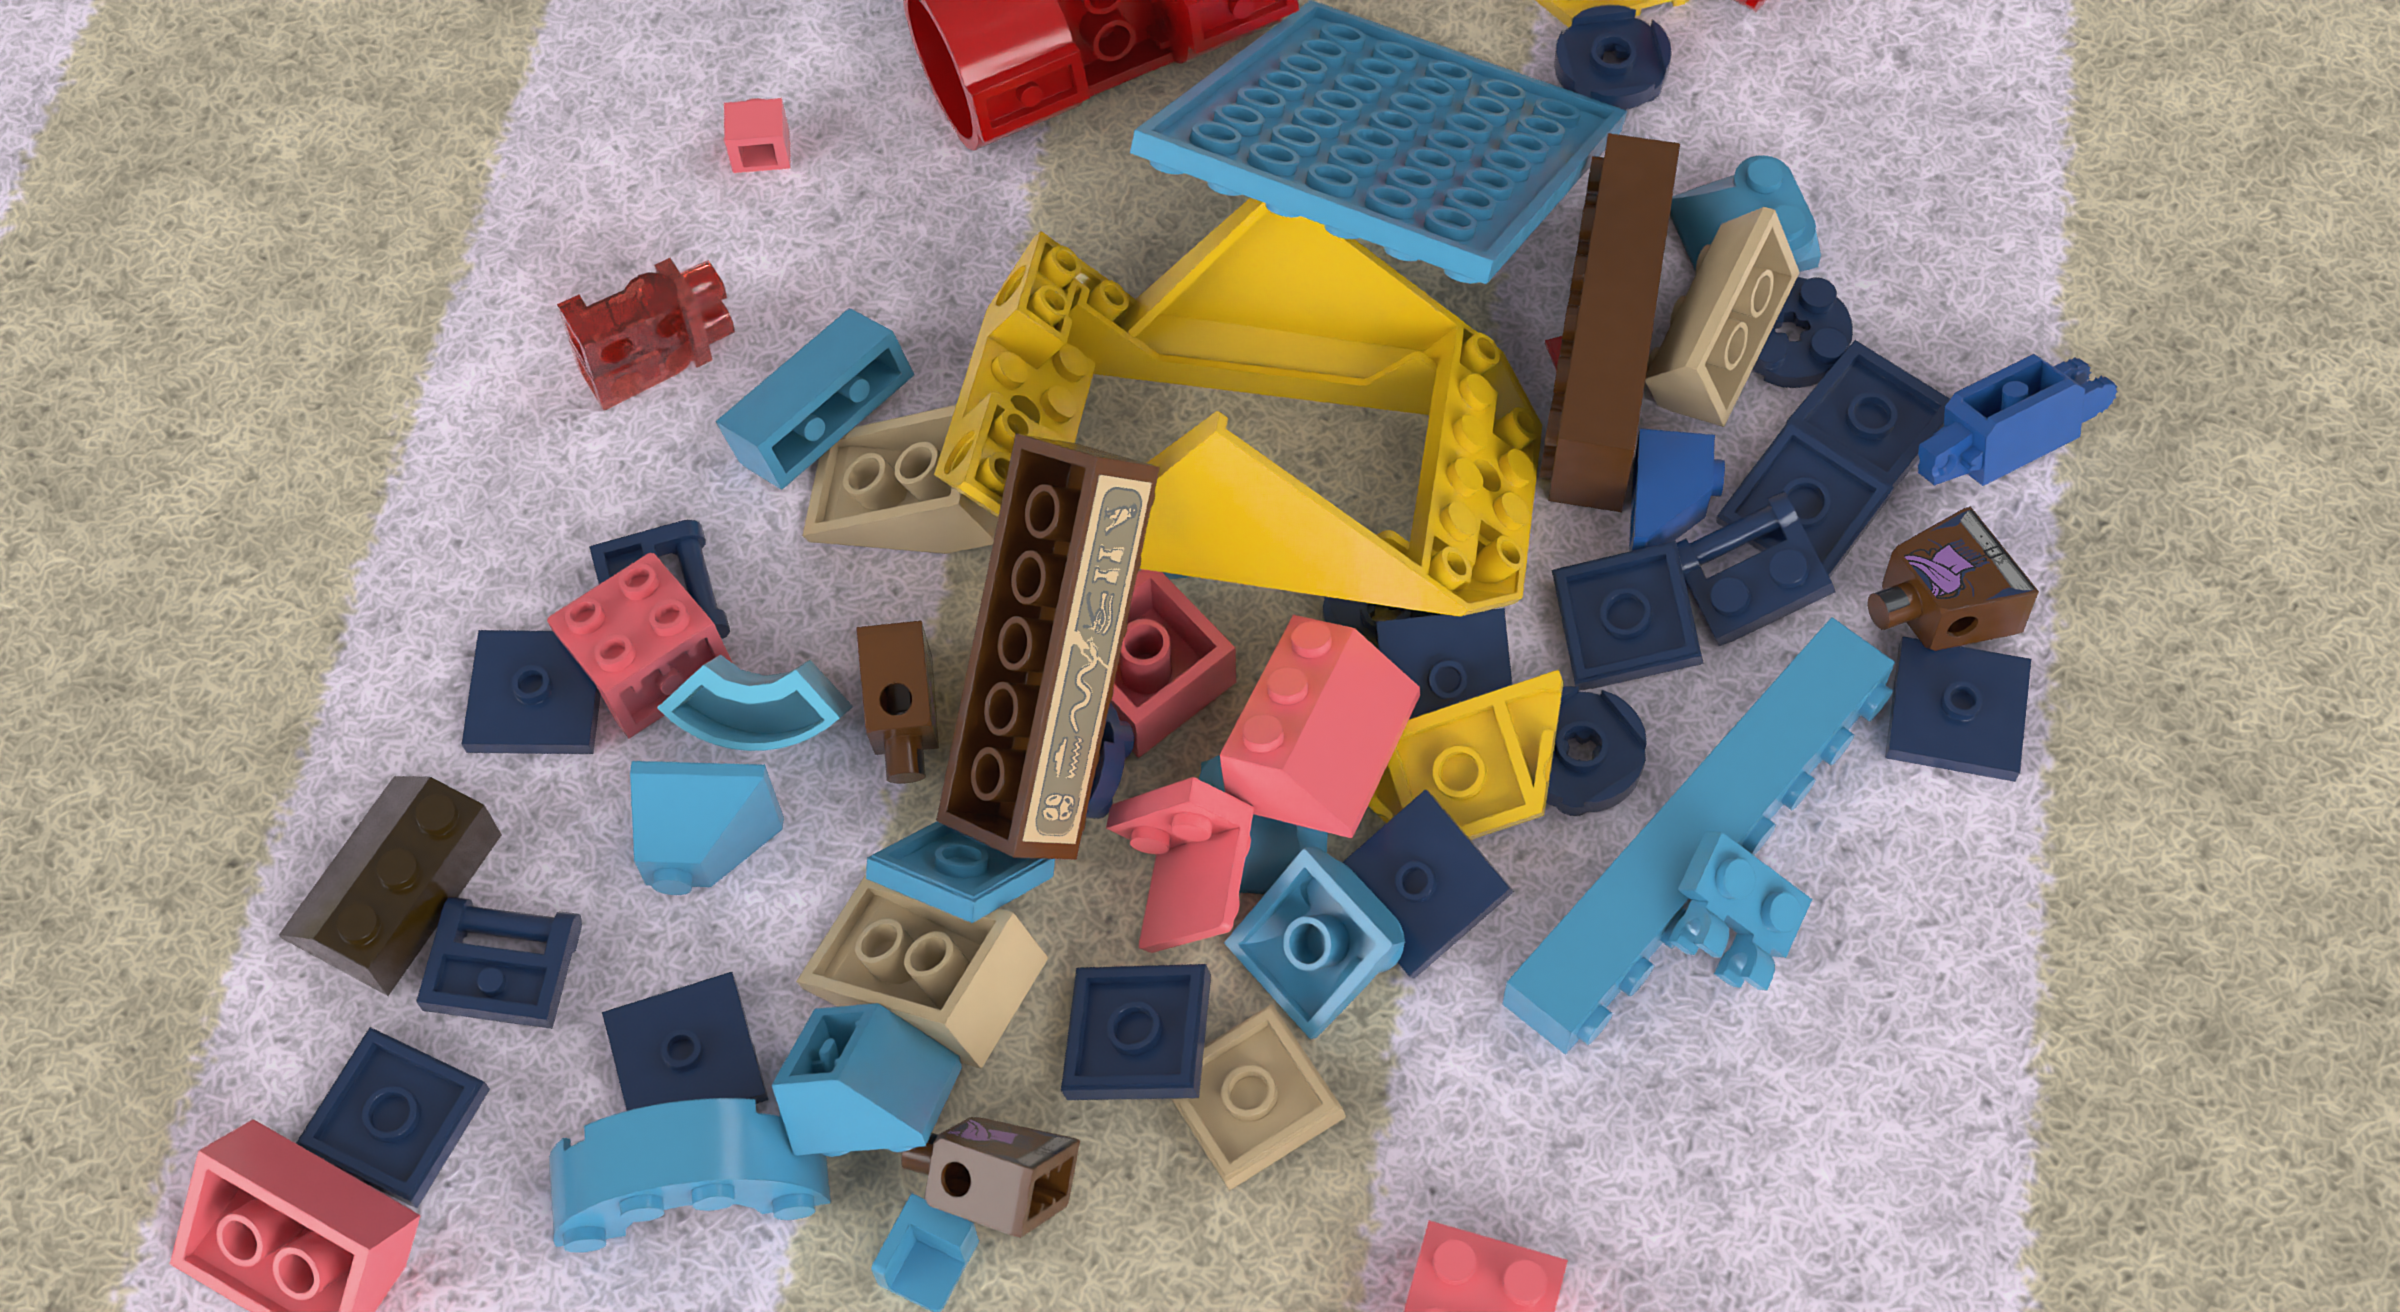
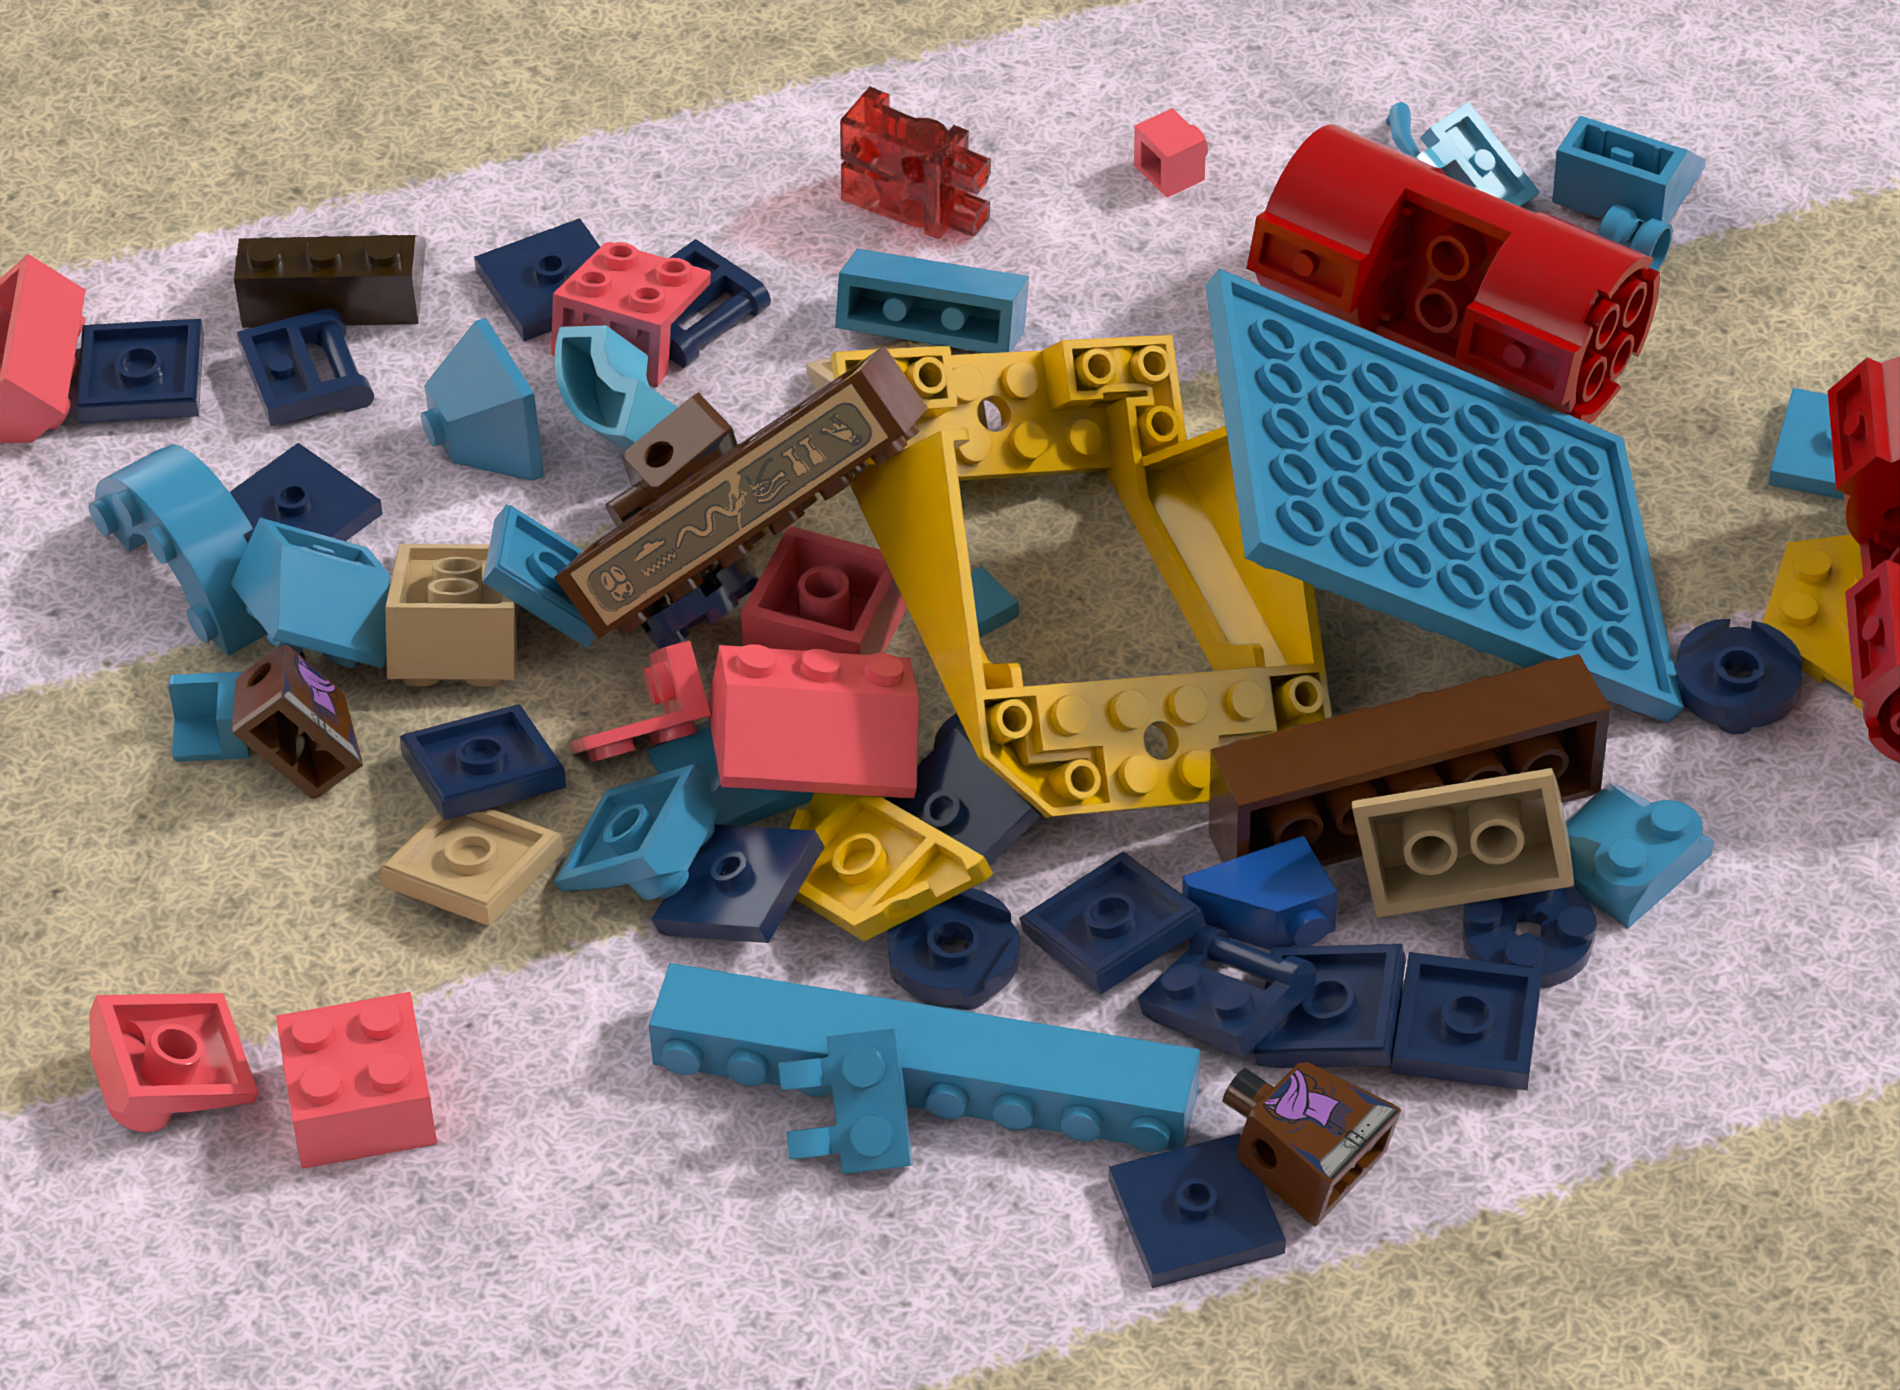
camera: 60 degrees right, 15 degrees down
(2013, 419) = (1539, 1116): blue hinge -> none

